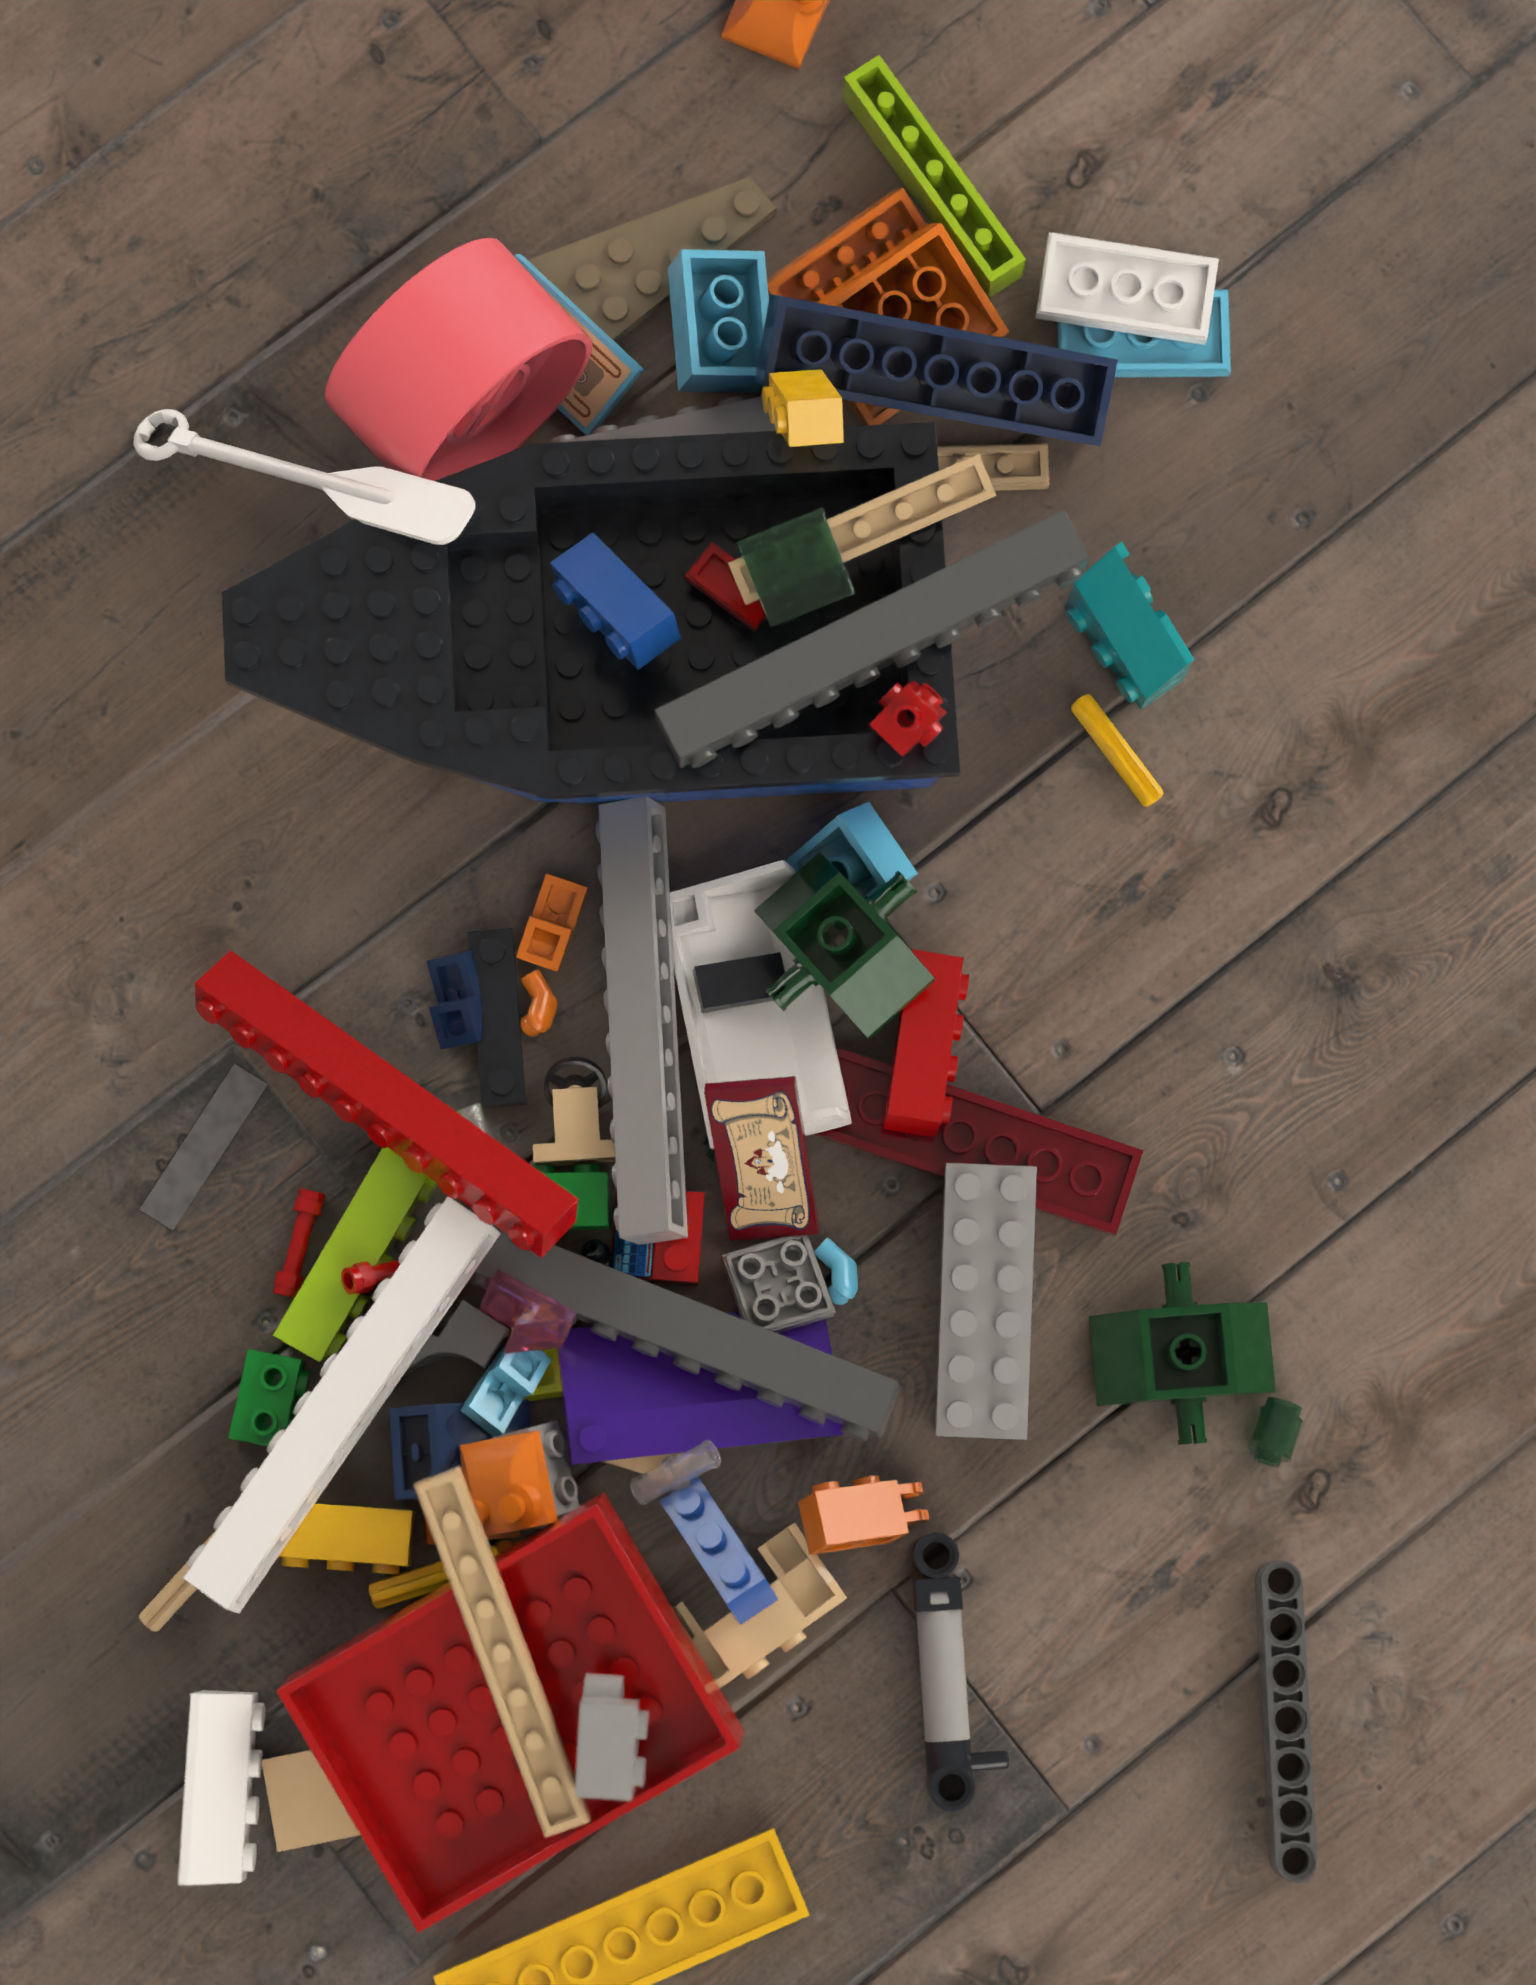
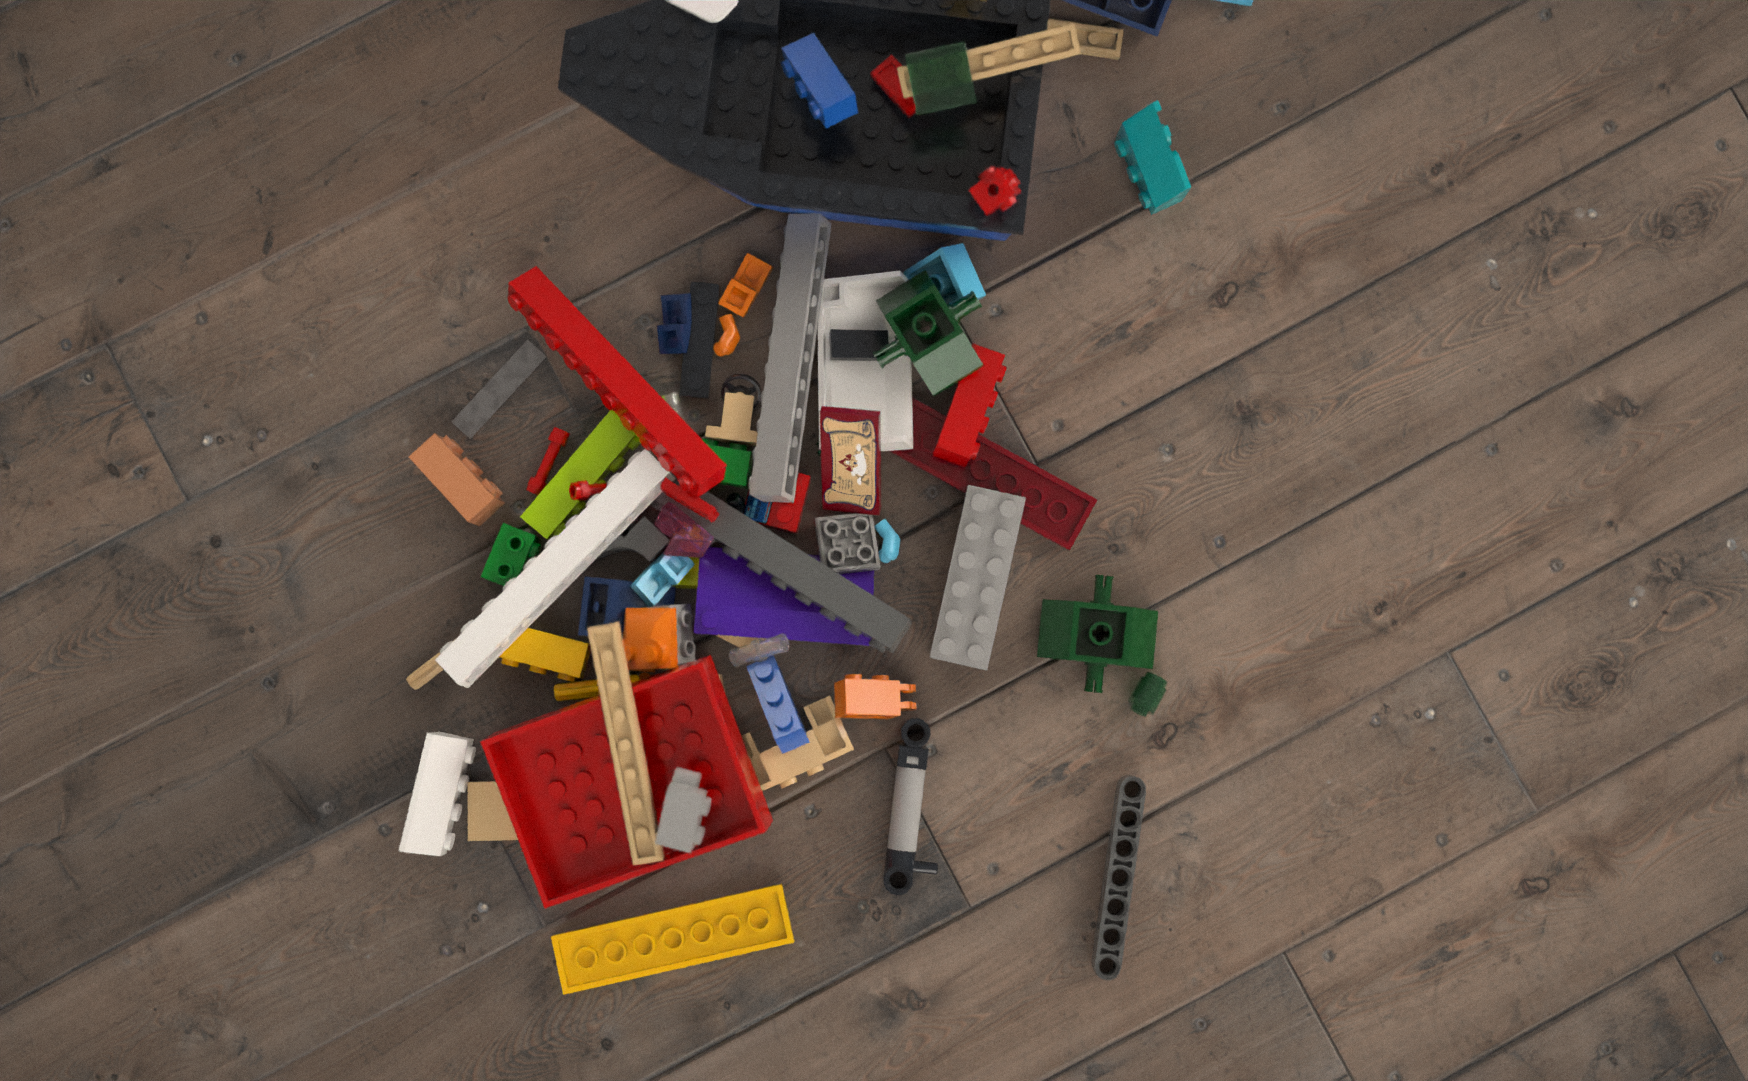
camera: 15 degrees right, 5 degrees up
(168, 1294) = (458, 478): none -> nougat brick
(529, 1263) = (688, 500): none -> red tile
(871, 640) = (982, 134): dark grey brick -> none
(1117, 750) = (1130, 238): yellow axle -> none

